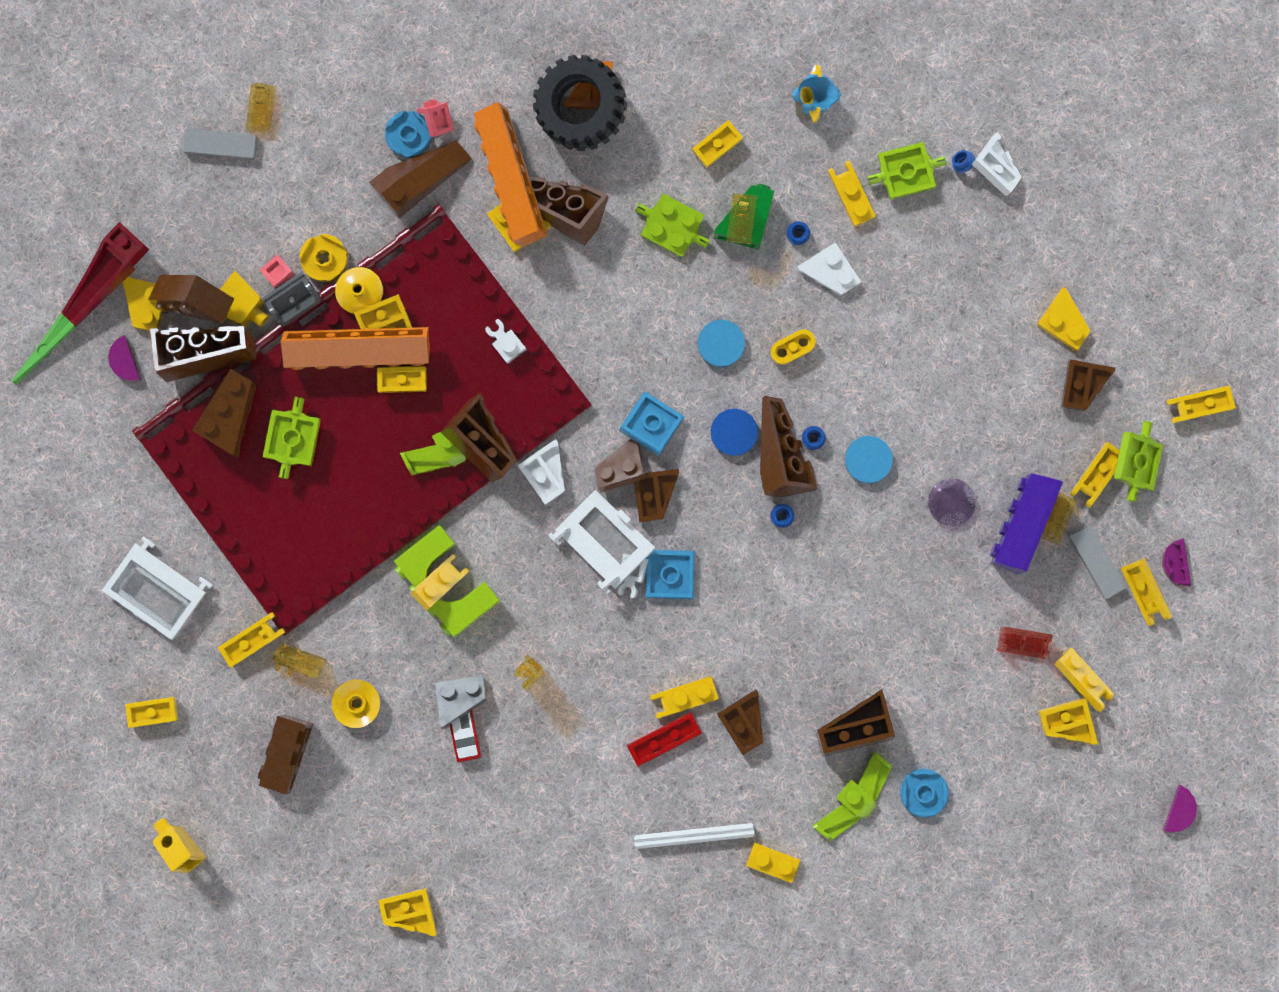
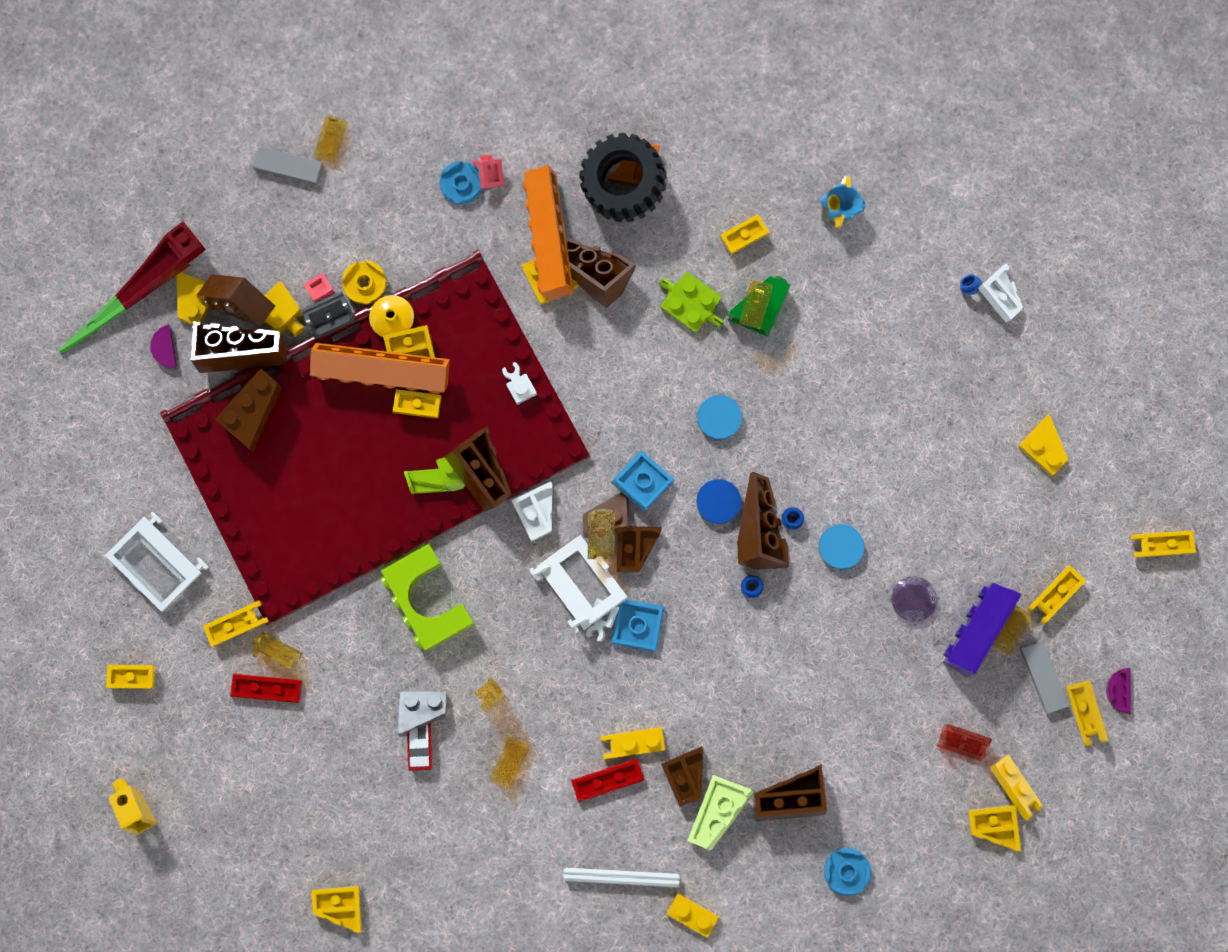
camera: 10 degrees right, 5 degrees down
(284, 753) = (247, 735): reddish brown wedge -> none
(291, 438) = (306, 441): lime plate -> none
(295, 701) = (266, 688): none -> red tile
(343, 703) = (311, 695): yellow dish -> none
(413, 179) = (458, 224): reddish brown wedge -> none
(438, 583) = (418, 598): yellow hinge -> none
(560, 737) = (510, 762): none -> clear yellow plate
(617, 486) = (601, 533): none -> clear yellow hinge
(782, 753) = (718, 810): none -> yellowish green wing
(792, 348) = (785, 431): yellow plate -> none
(798, 226) = (809, 321): blue plate -> none
(831, 270) = (832, 365): white wing -> none
(852, 195) = (862, 300): yellow hinge -> none
(856, 799) = (781, 867): lime plate -> none
(906, 170) = (916, 285): lime plate -> none
(1083, 383) = (1054, 507): reddish brown wing -> none
(1138, 461) = (1096, 587): lime plate -> none
(1181, 811) = (1092, 930): magenta tile -> none

